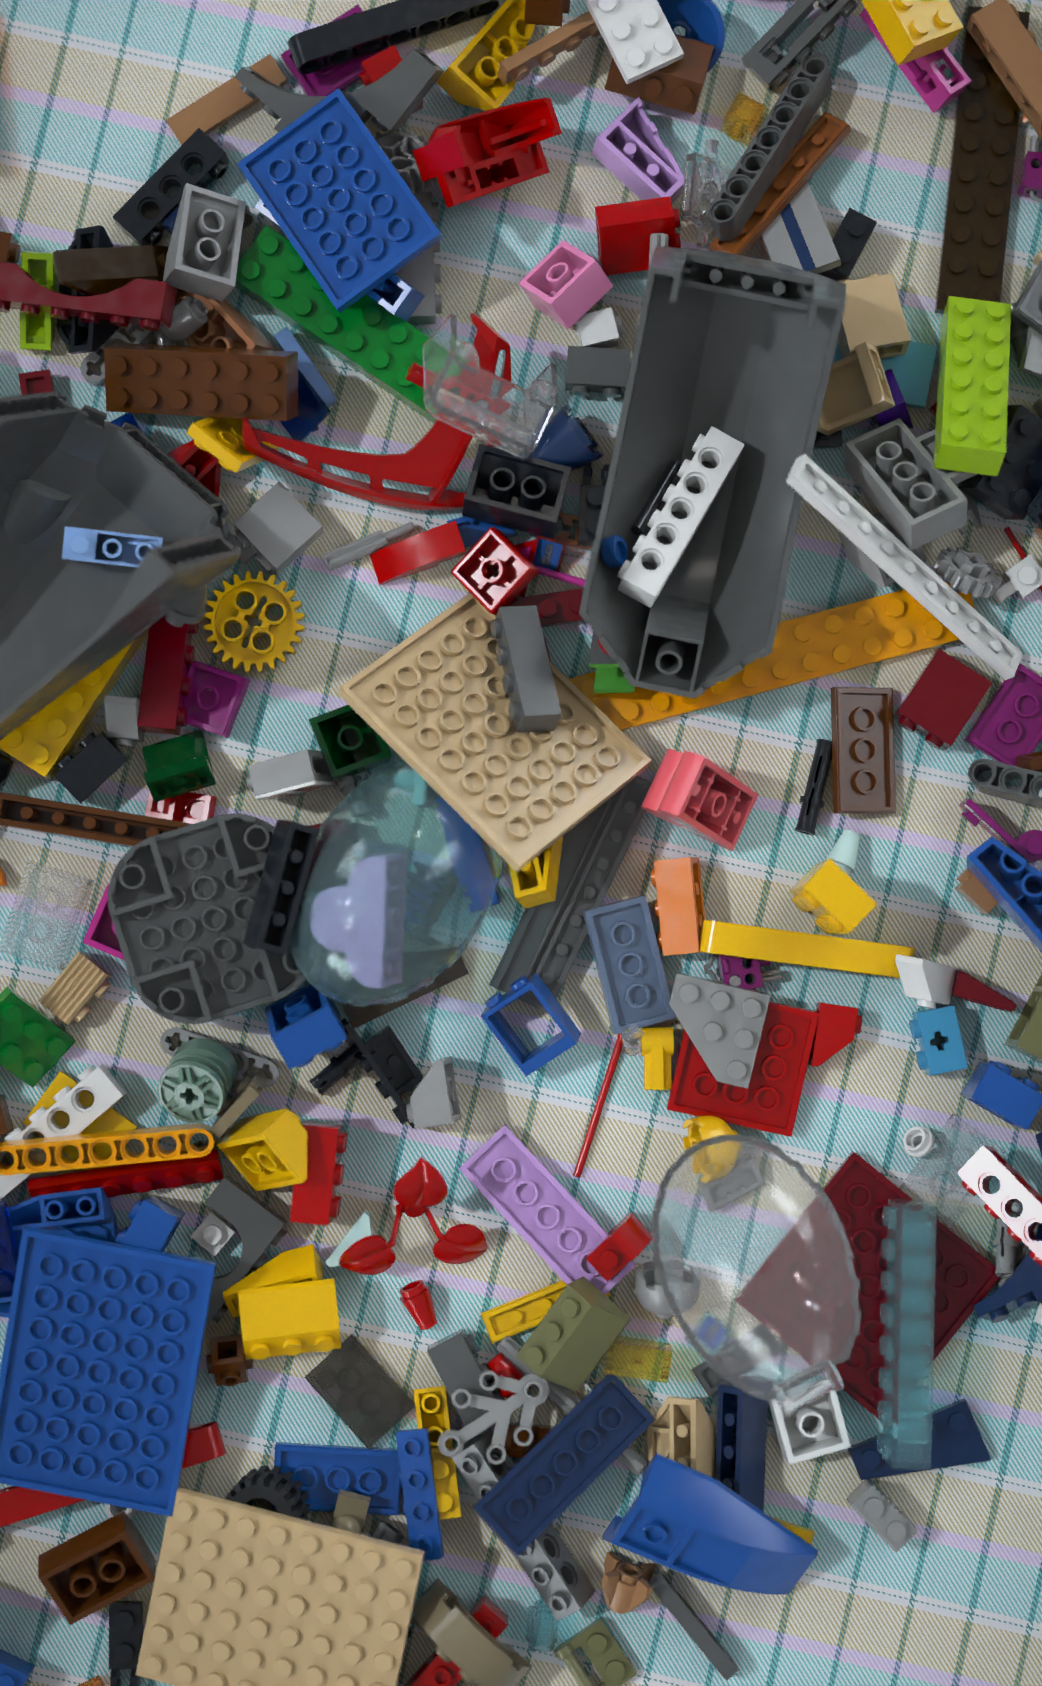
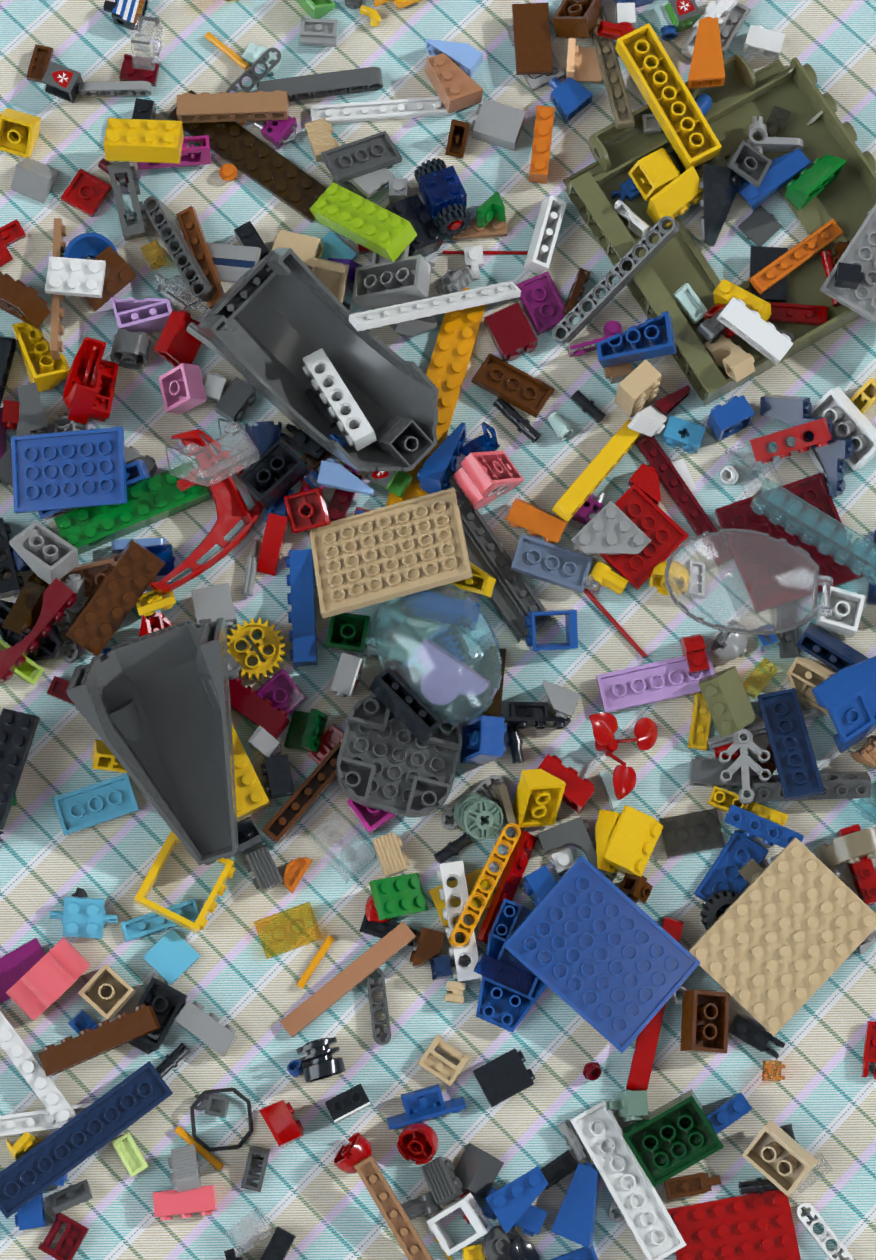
camera: 60 degrees left, 10 degrees down
(106, 546) = (173, 689): light blue slope -> none
(134, 1068) = (453, 848): none -> black pin
(351, 653) = (303, 607): none -> blue brick
(419, 1304) = (663, 774): red cone -> none
(526, 669) = (368, 520): dark grey brick -> none
(566, 580) = (338, 477): none -> light blue slope
(581, 174) = (130, 349): none -> dark grey brick
(668, 719) = (438, 467): none -> blue wedge
(744, 759) = (482, 443): none -> clear blue piece
(832, 898) = (579, 439): yellow brick -> none
(852, 1078) = (675, 485): none -> dark red tile
(878, 1074) = (682, 469): none -> white sticker
(898, 877) = (588, 406): none -> black pin
(936, 145) = (228, 172): none -> orange plate
(963, 936) = (638, 388): none -> tan brick
(1005, 1250) = (807, 462): light grey pin -> none

